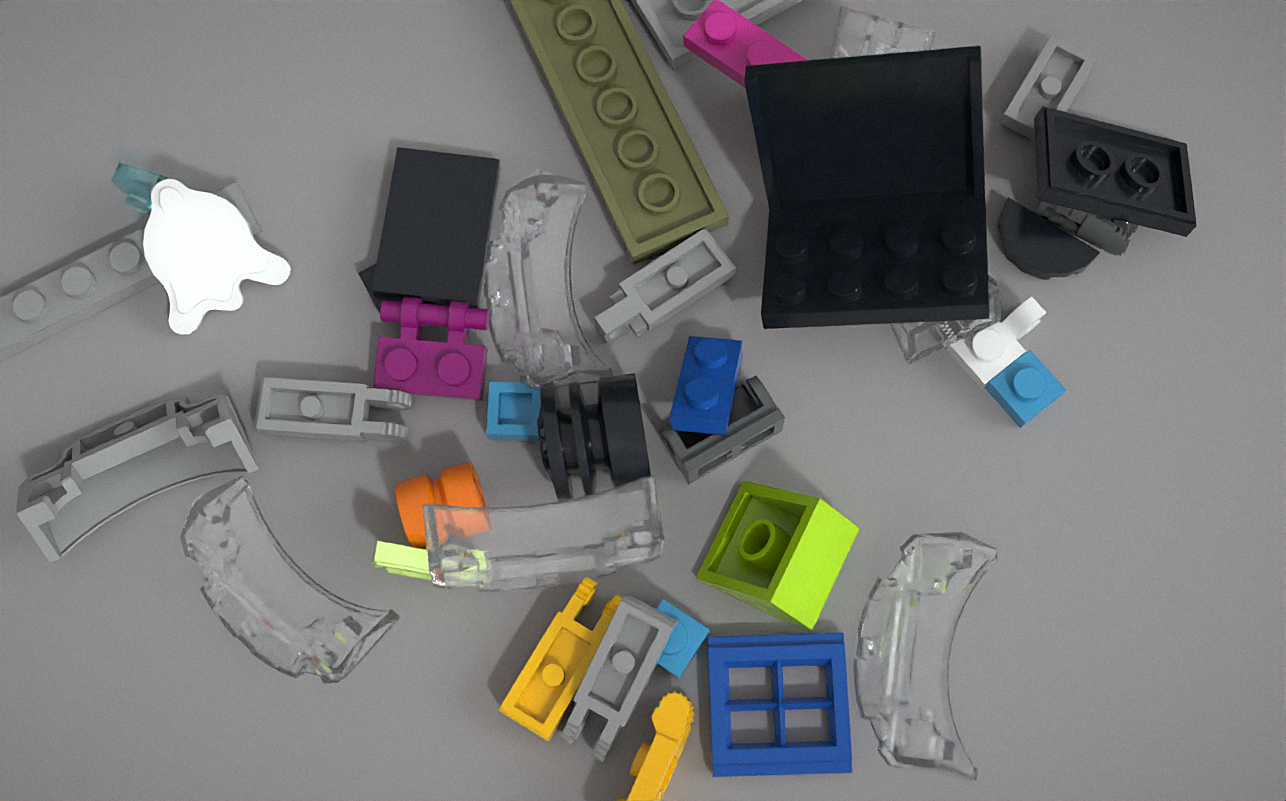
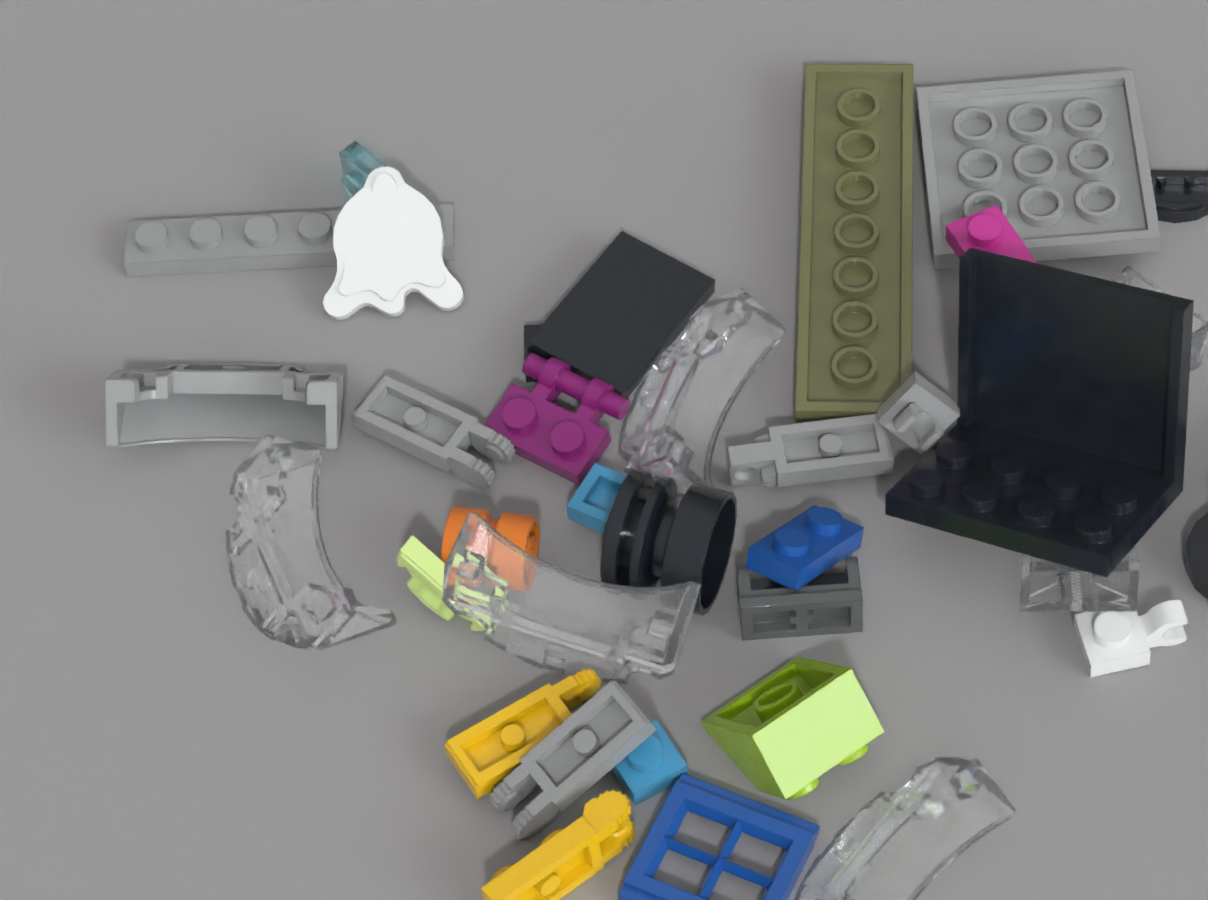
camera: 25 degrees right, 20 degrees down
(739, 218) = (918, 413): none -> light grey tile
(1025, 388) = (1133, 690): dark azure plate -> none

